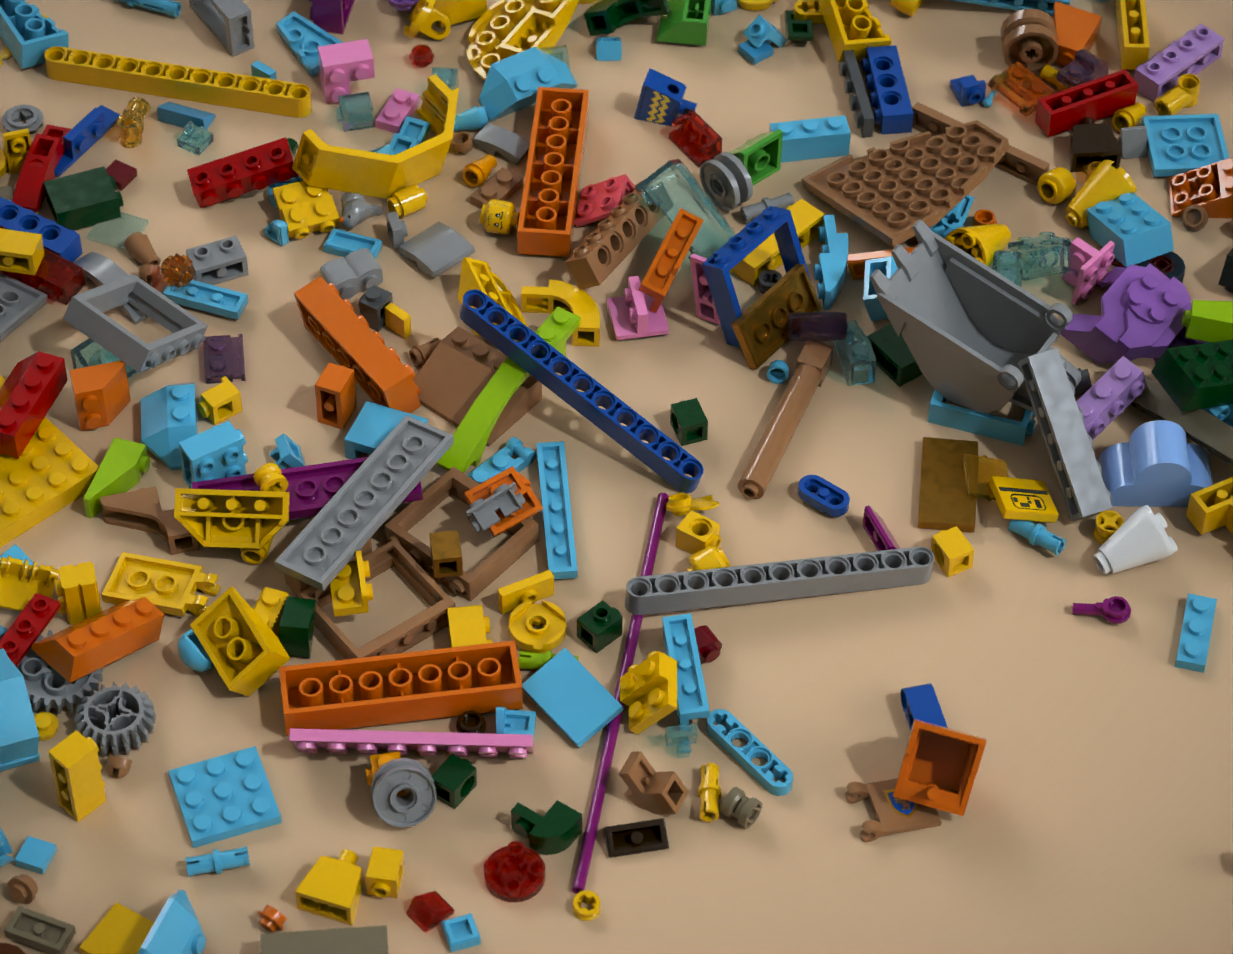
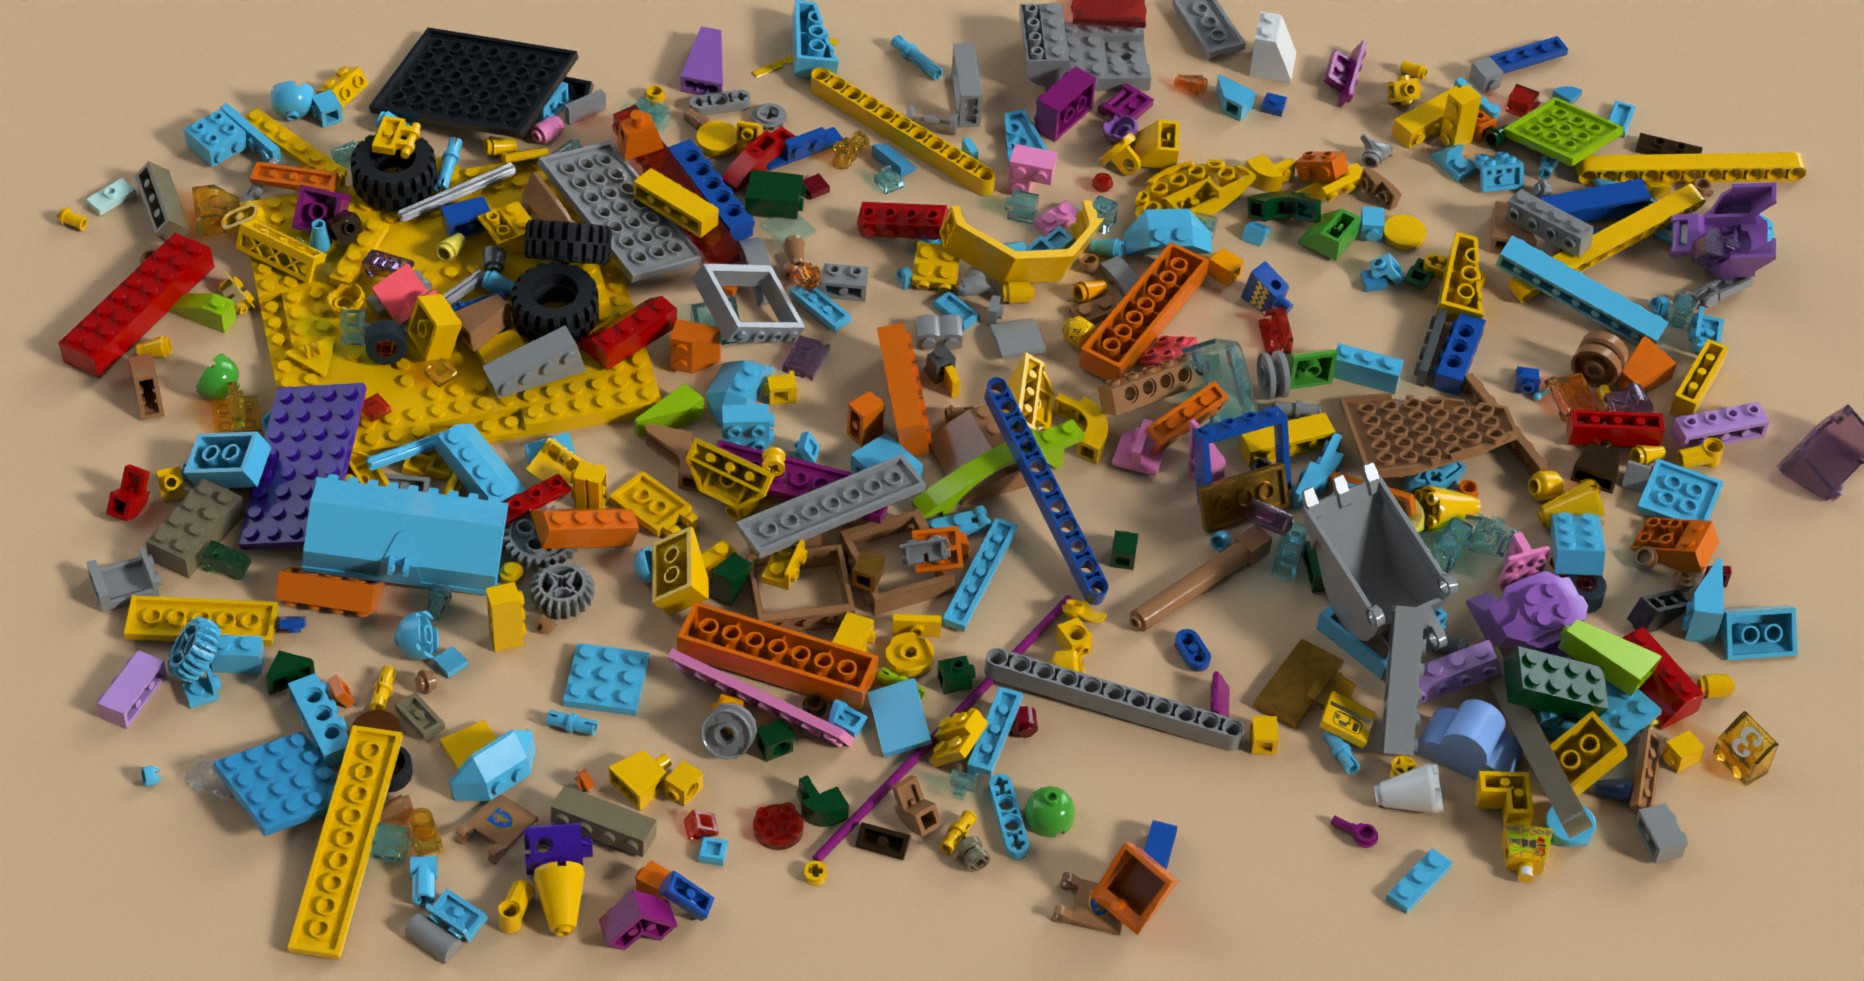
camera: 25 degrees right, 0 degrees up
(207, 57) = (933, 120): none -> light grey wheel
(603, 92) = (1225, 267): none -> light orange brick
(789, 727) = (1049, 811): none -> bright green cylinder

